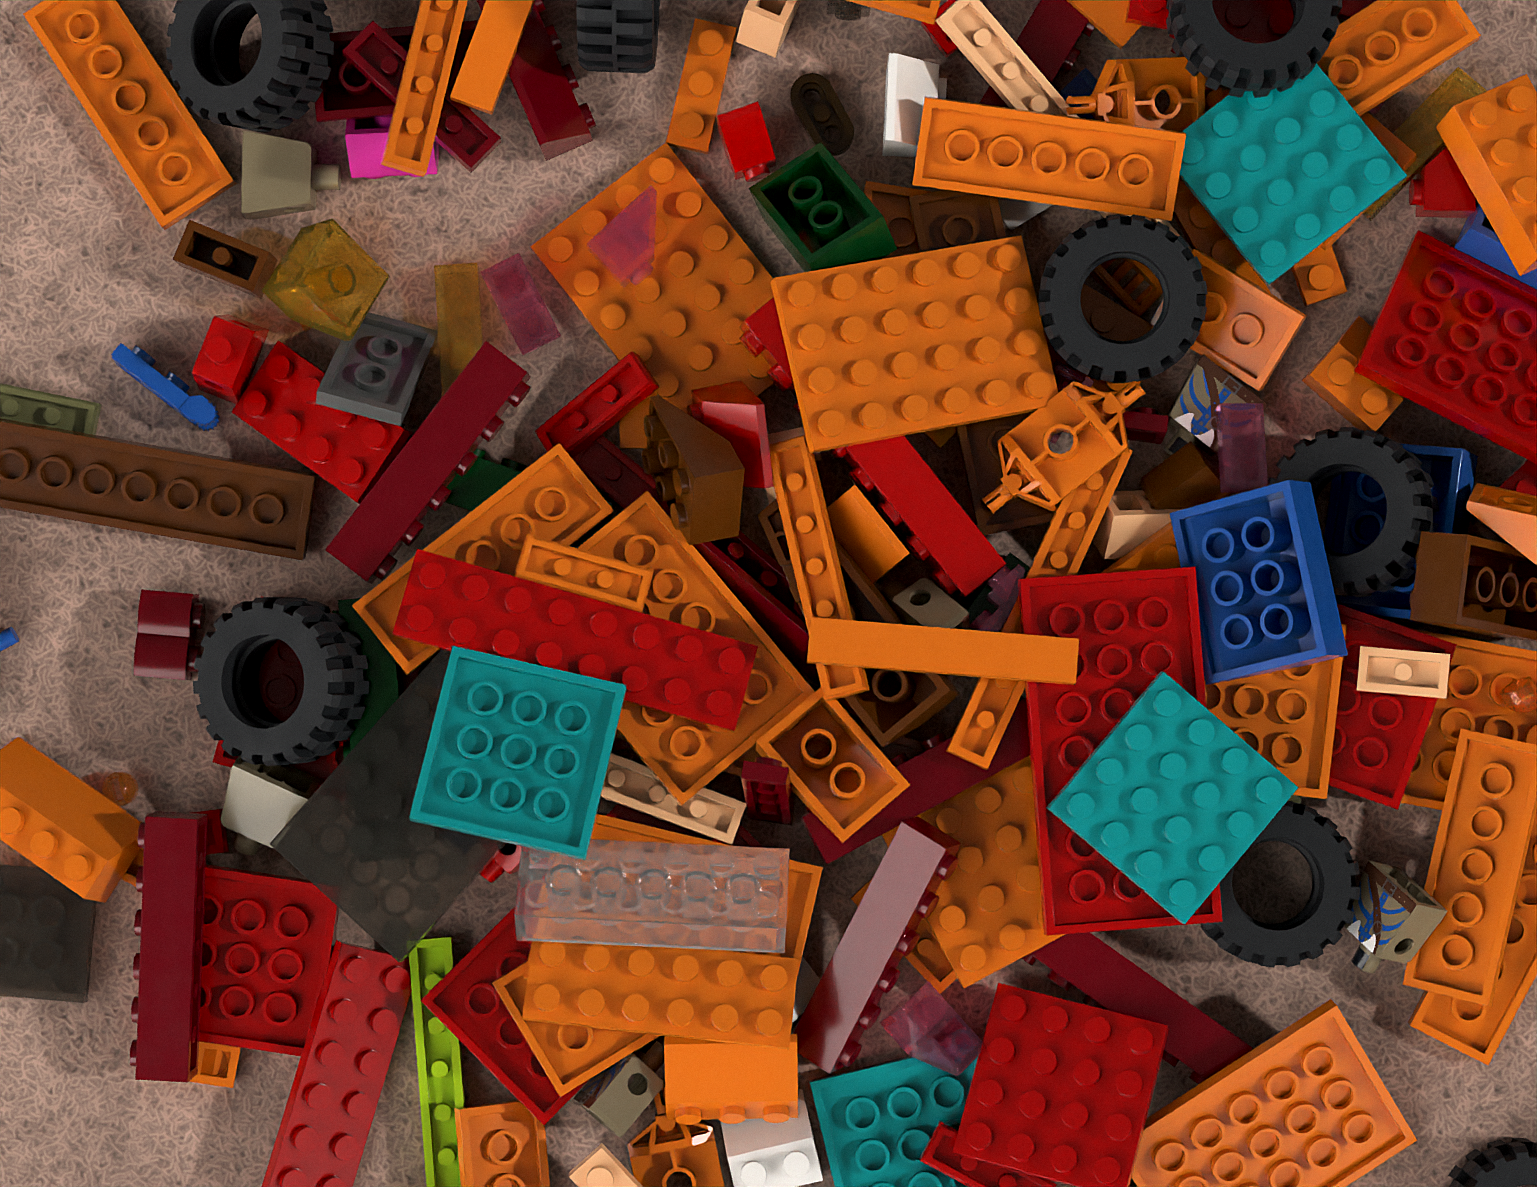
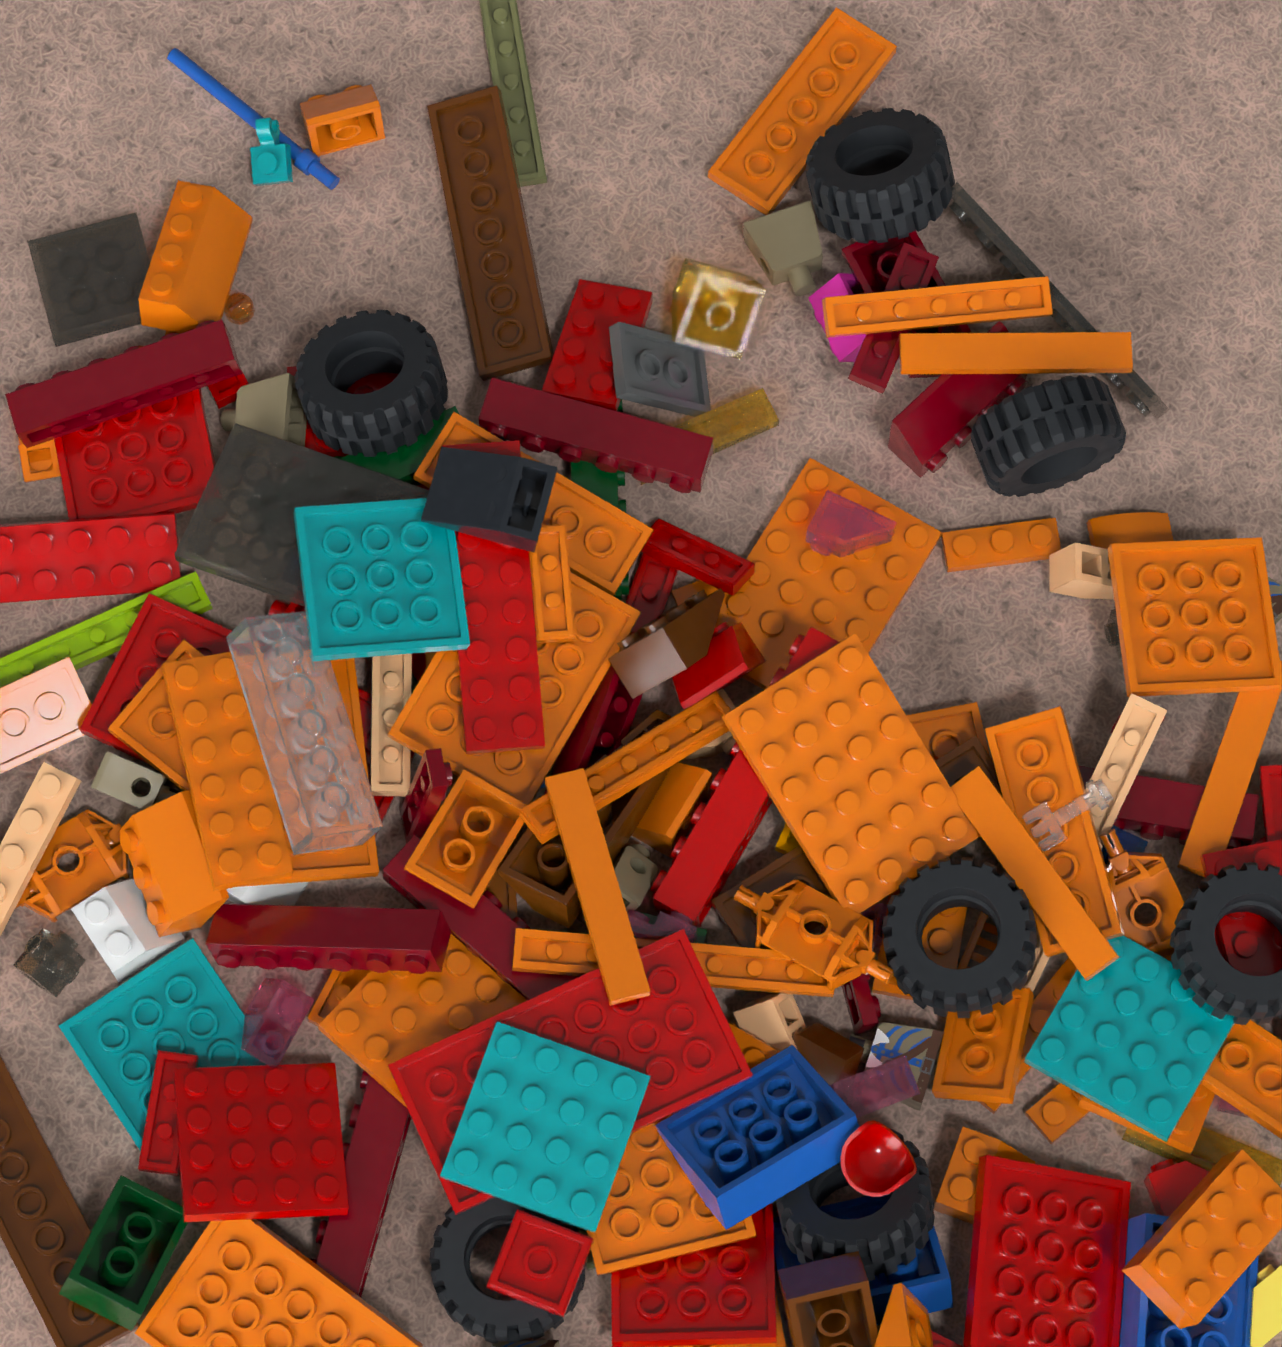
camera: 65 degrees right, 15 degrees down
(167, 634) = (382, 288): dark red brick -> none
(168, 388) = (579, 225): blue hinge -> none
(225, 259) = (701, 222): reddish brown brick -> none
(228, 357) = (624, 257): red torso -> none
(476, 604) = (490, 496): none -> black slope
(520, 304) = (759, 464): clear pink slope -> none
(746, 142) = (968, 591): red slope -> none
(821, 213) = (931, 668): dark green brick -> none
(824, 114) = (1017, 649): dark brown plate -> none
(905, 88) = (1070, 692): white slope -> none
(1037, 98) = (1052, 822): none -> clear hinge
(1087, 197) = (1033, 874): none -> orange tile
(1301, 853) = (540, 1263): none -> red tile
(1340, 475) = (876, 1160): none -> red helmet
(1403, 672) = (733, 1297): light nougat plate -> none

